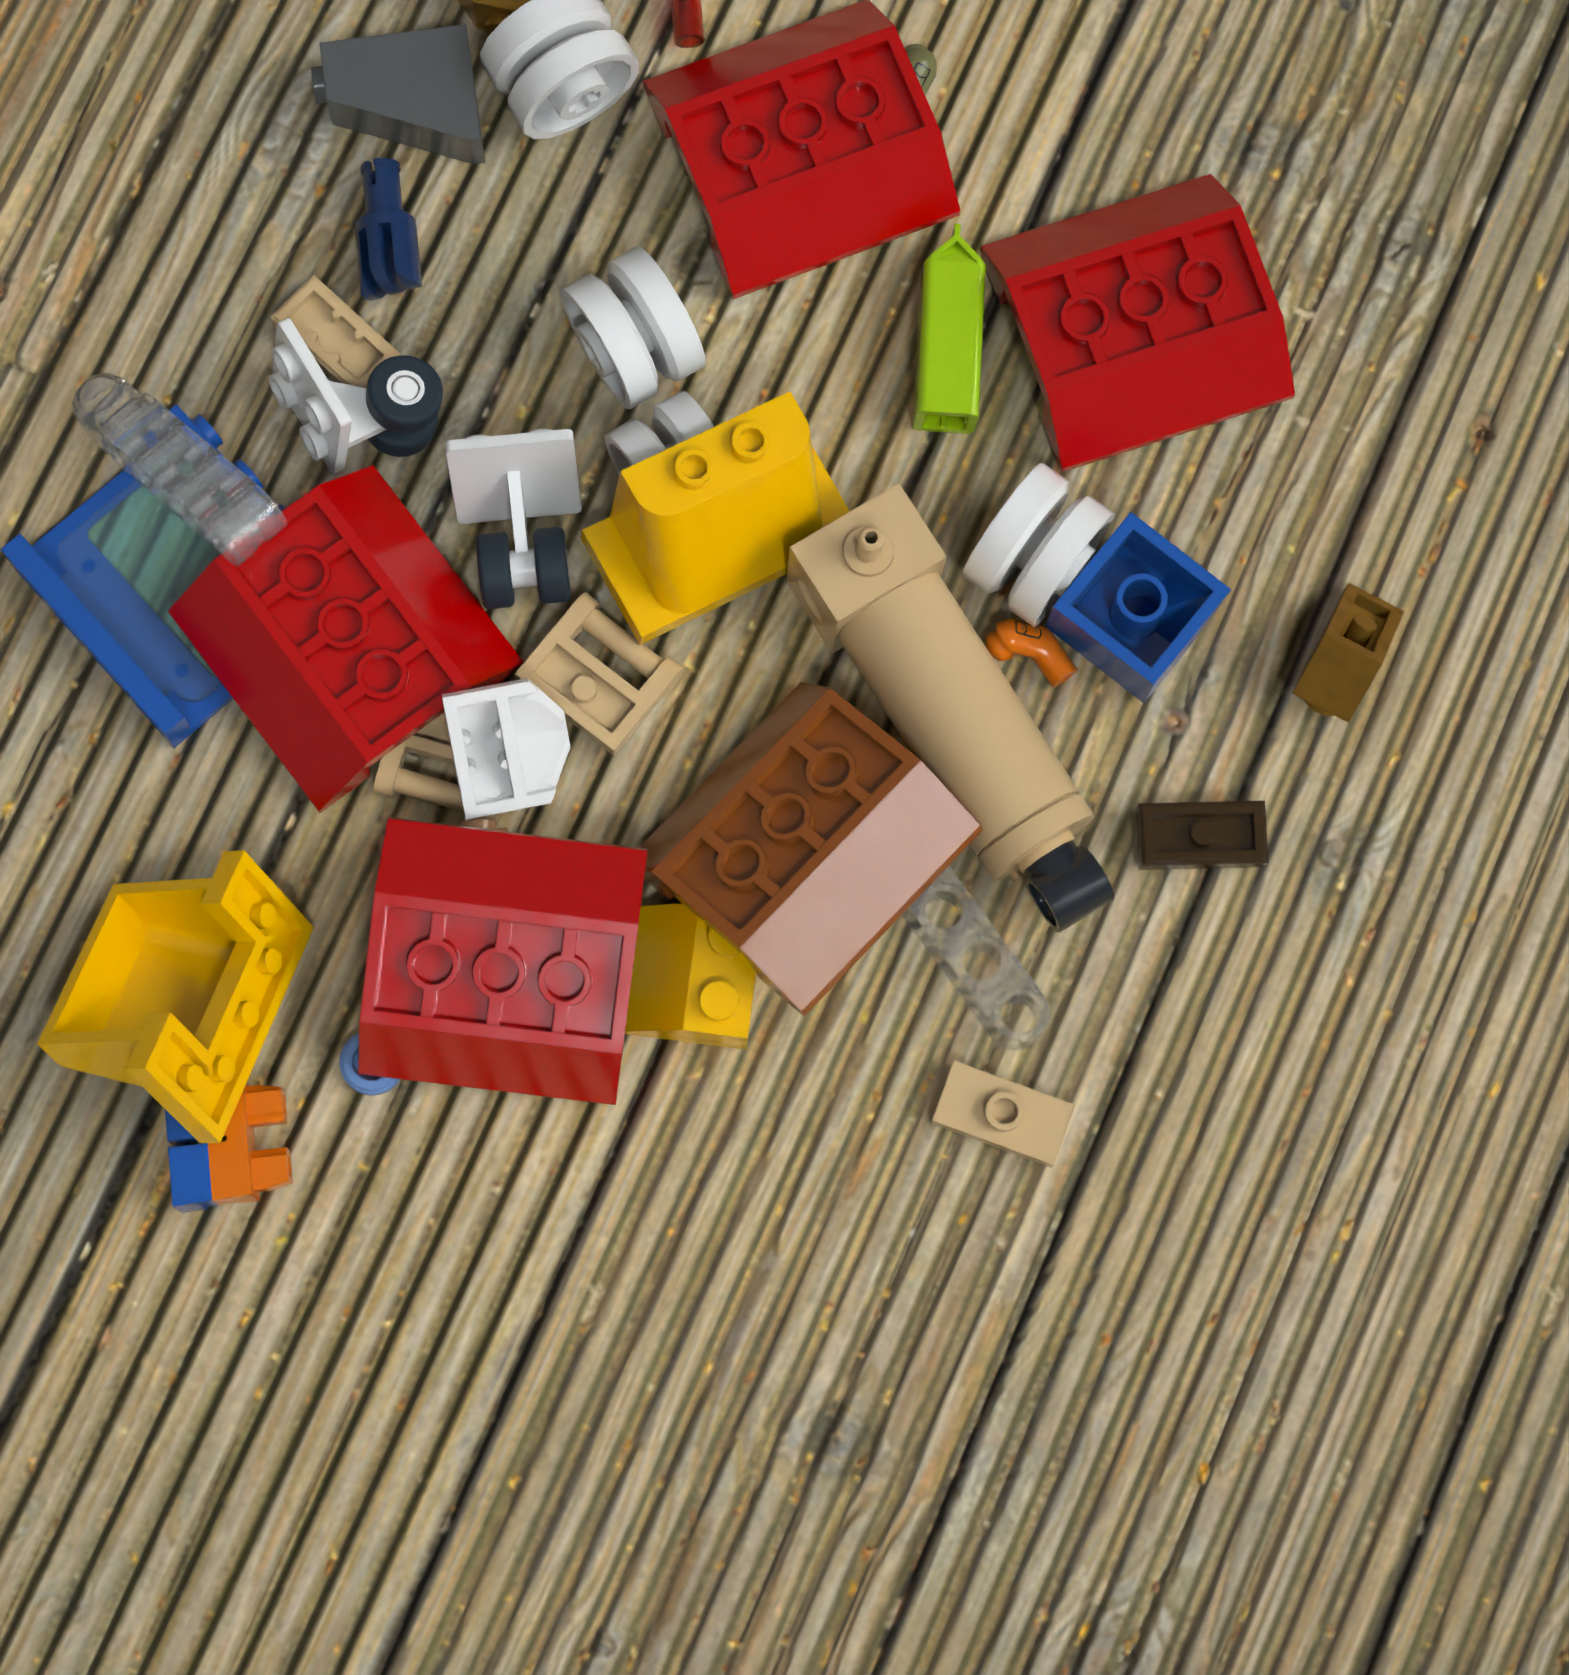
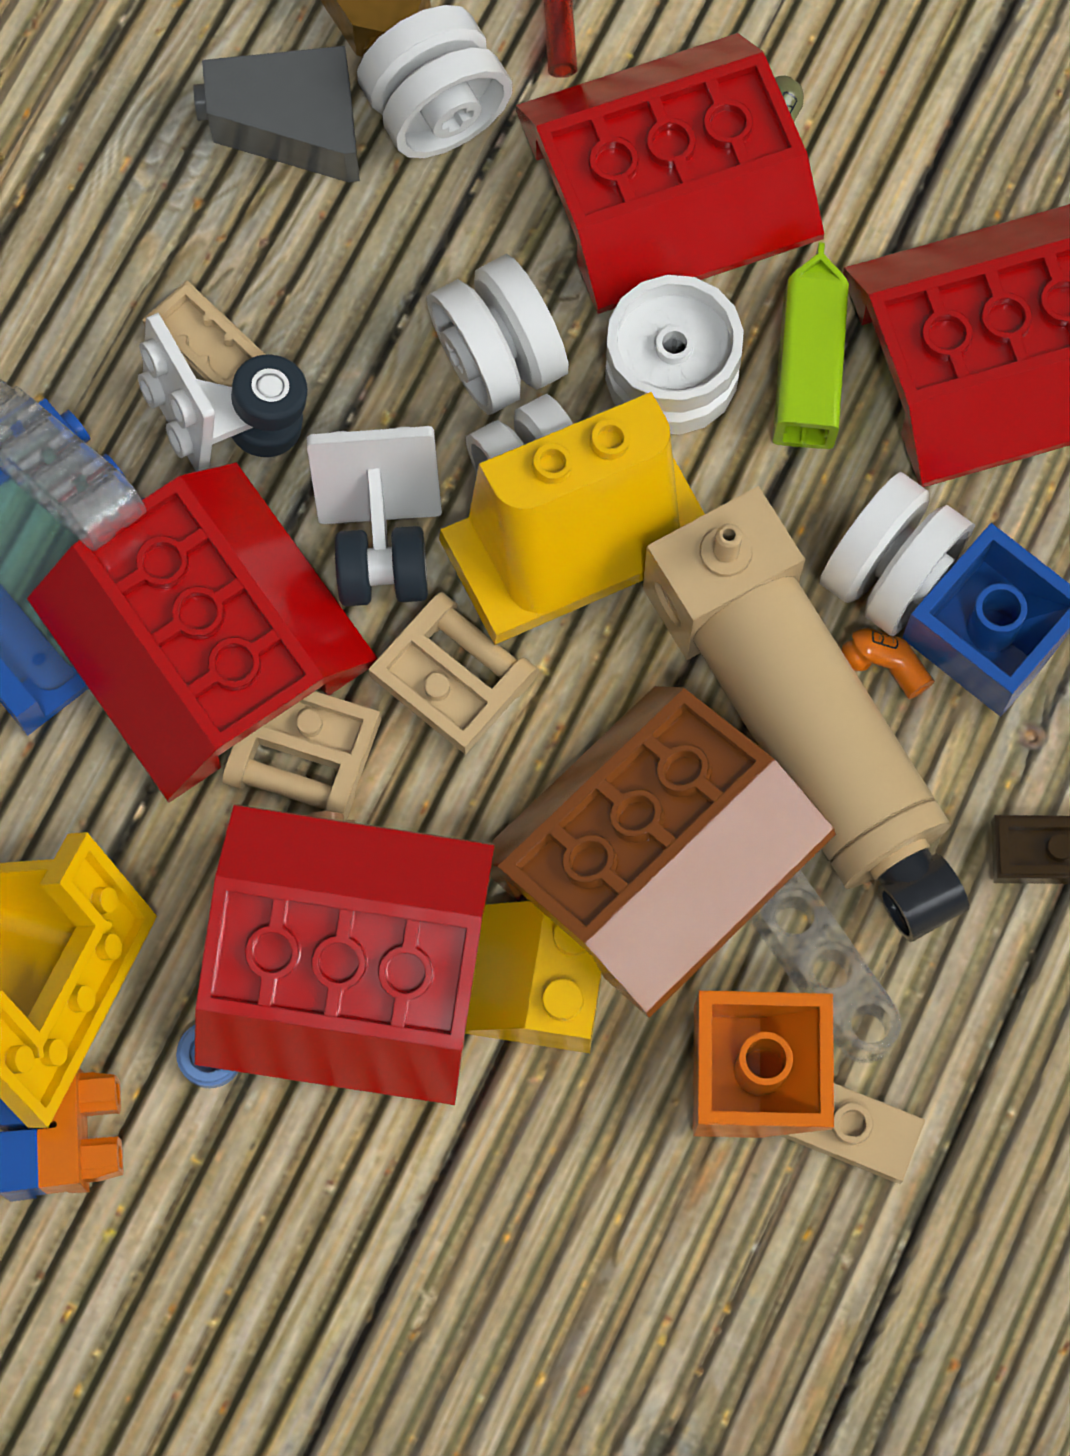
camera: 10 degrees right, 5 degrees down
(386, 234) = (259, 244): dark blue arm -> none
(505, 746) = (356, 738): white slope -> none
(812, 336) = (680, 345): none -> white wheel
(915, 1056) = (762, 1064): none -> orange slope

